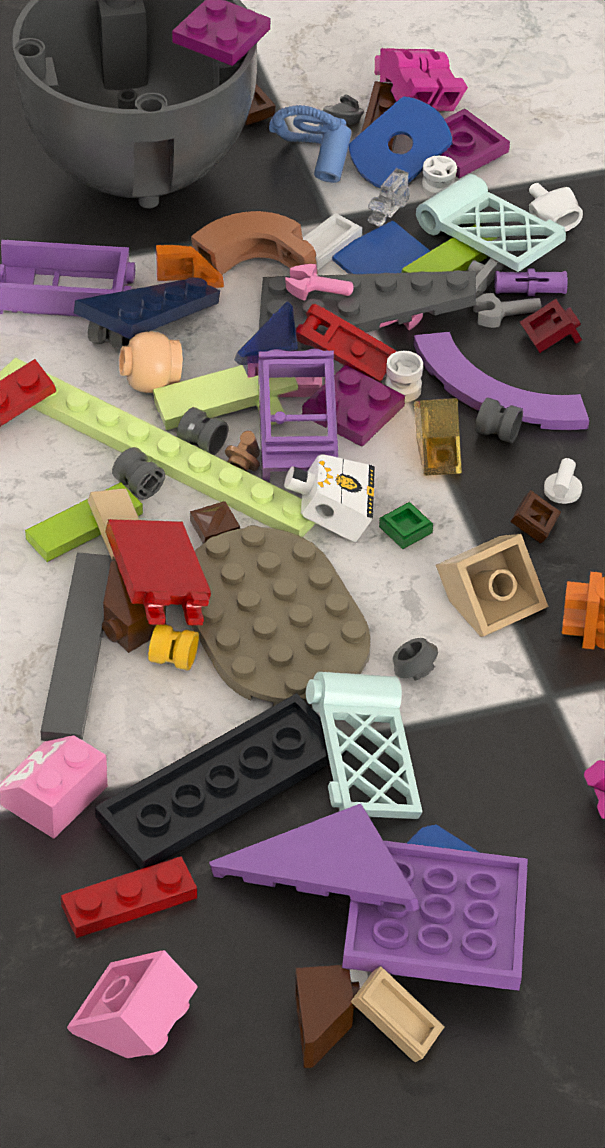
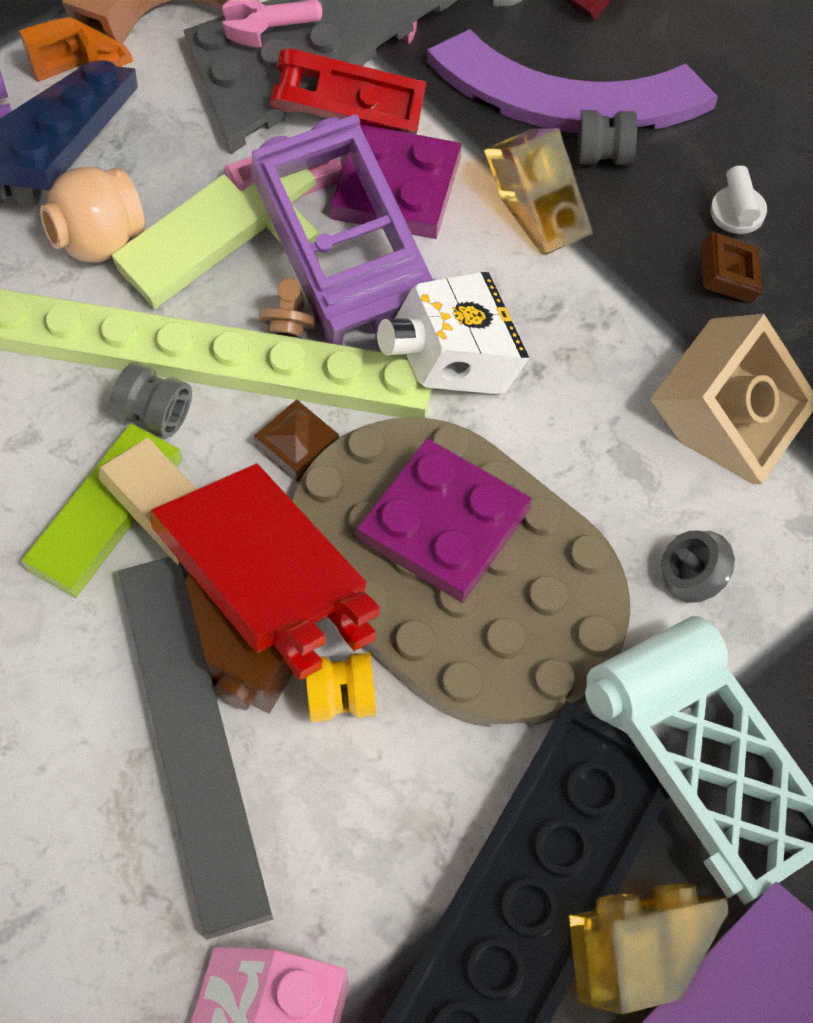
camera: 20 degrees left, 15 degrees up
(203, 431) = (212, 296): dark grey wheel -> none
(268, 808) = (643, 950): none -> clear yellow slope
(275, 583) = (444, 519): none -> magenta plate
(276, 333) = (251, 118): clear blue slope -> none
(405, 374) = (448, 110): white wheel -> none
(406, 525) = (563, 342): green tile -> none

